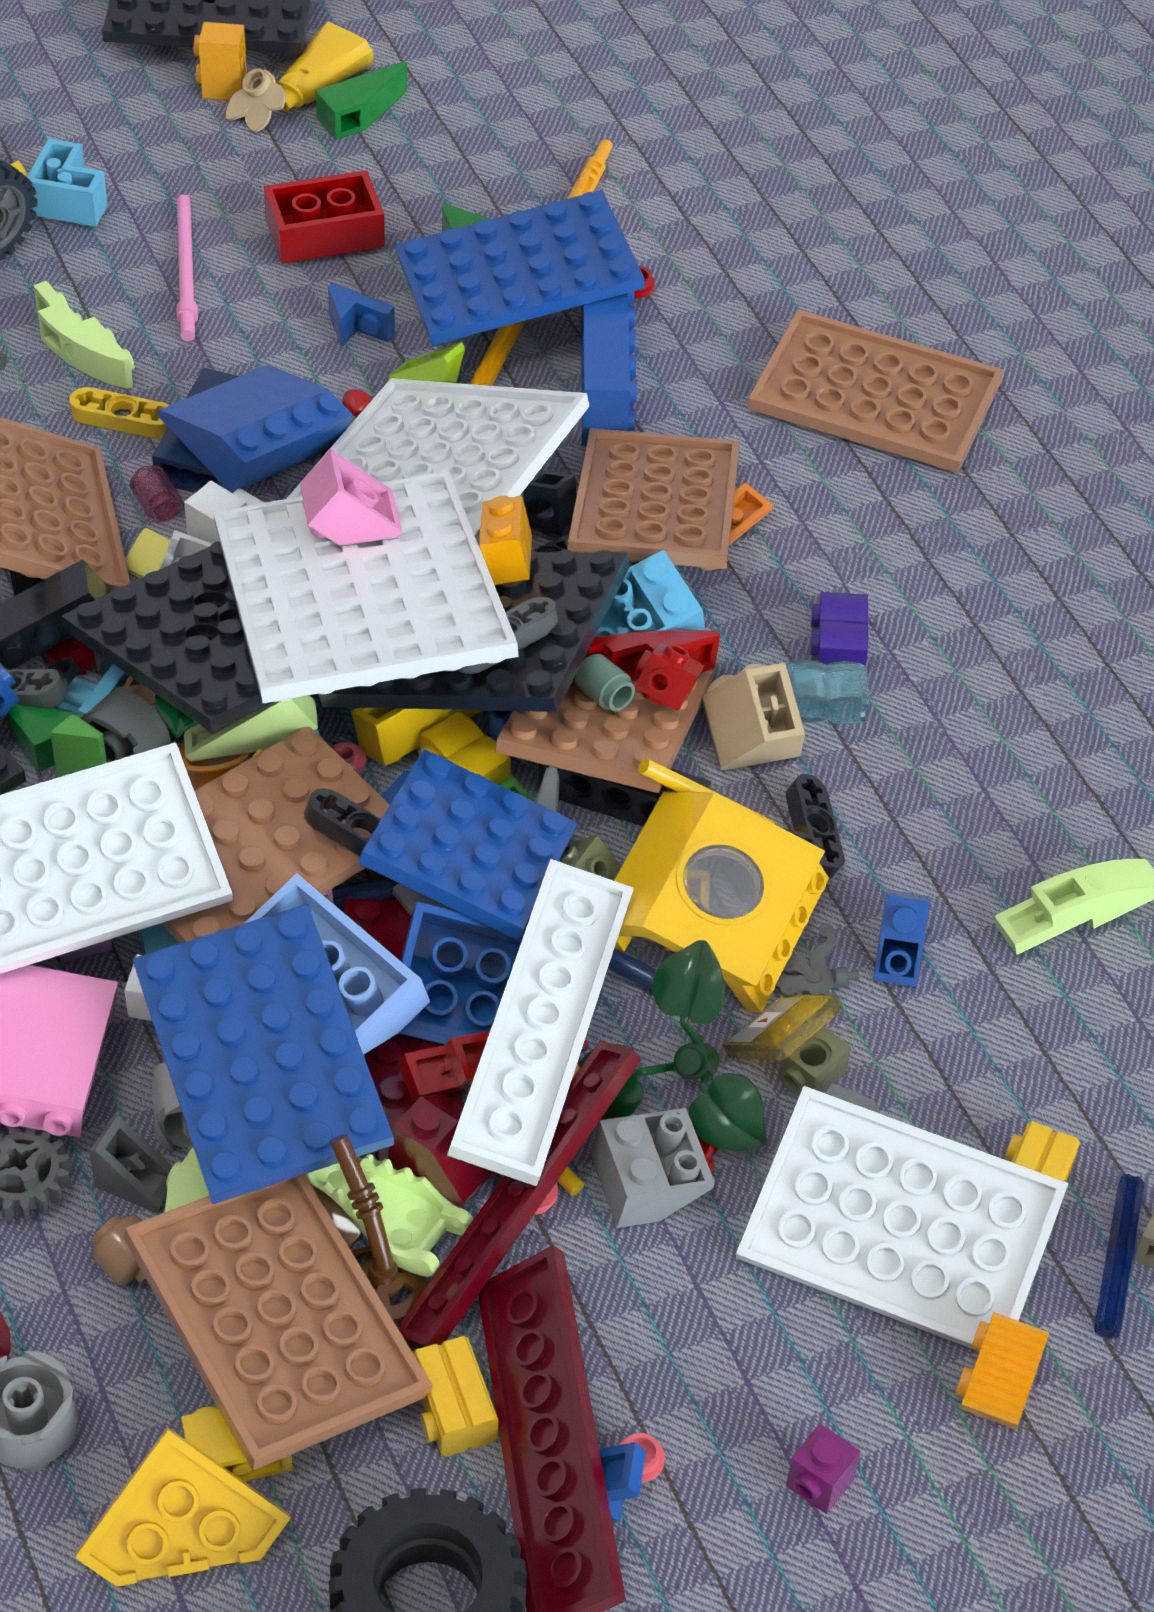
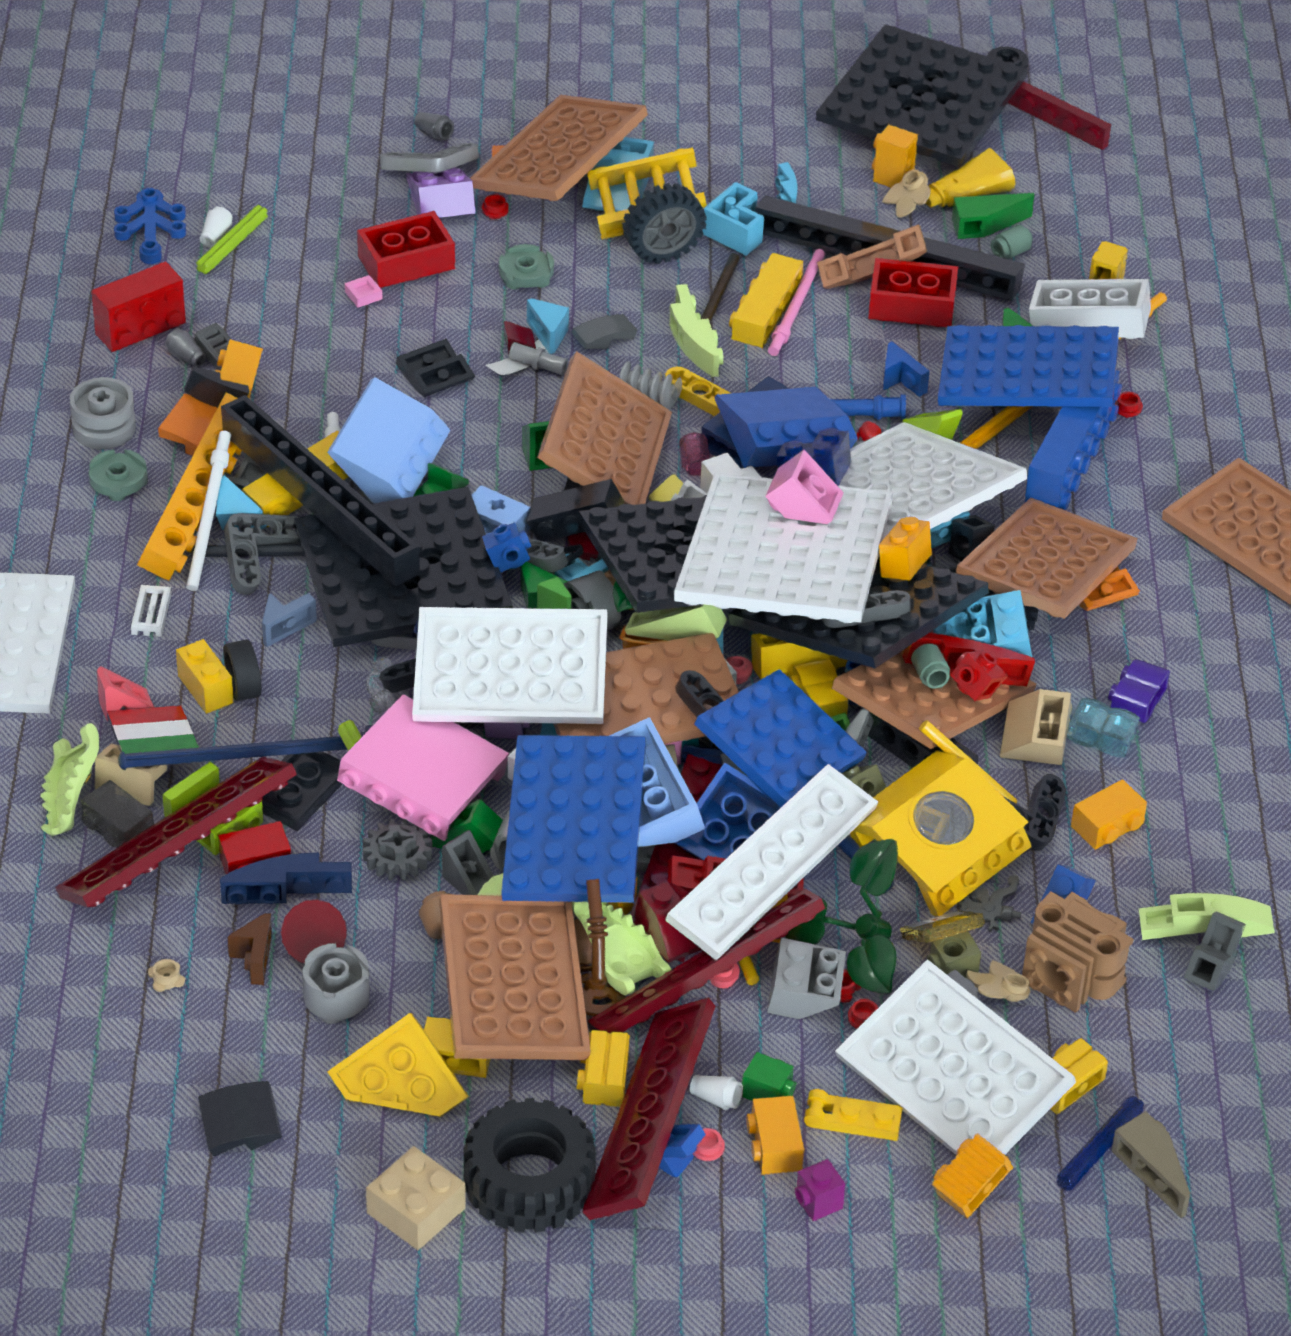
camera: 25 degrees right, 5 degrees down
(66, 422) = (660, 391): none -> light grey piece
(83, 265) = (720, 287): none -> dark brown bar
(109, 129) = (786, 183): none -> medium azure slope
(111, 1094) = (479, 820): none -> green slope
(149, 274) = (766, 300): none -> yellow brick
(245, 199) = (859, 266): none -> nougat slope
(250, 168) = (848, 235): none -> black brick
(298, 457) = (828, 450): none -> clear blue brick
(349, 368) = (876, 407): none -> blue pin
(404, 127) = (1012, 242): none -> sand green brick
(538, 135) = (1108, 262): none -> yellow brick
(543, 173) = (1093, 304): none -> white brick
(617, 1370) = (718, 1090): none -> white cone
(675, 1331) = (767, 1078): none -> green brick
(724, 1408) = (776, 1135): none -> light orange brick
(741, 1185) = (861, 1011): none -> red plate
(802, 1337) = (852, 1115): none -> yellow plate
(885, 1076) = (1000, 983): none -> tan plate
(894, 803) = (1109, 814): none -> light orange brick
(960, 1003) = (1075, 951): none -> medium nougat piece
(1117, 944) = (1216, 953): none -> dark grey brick

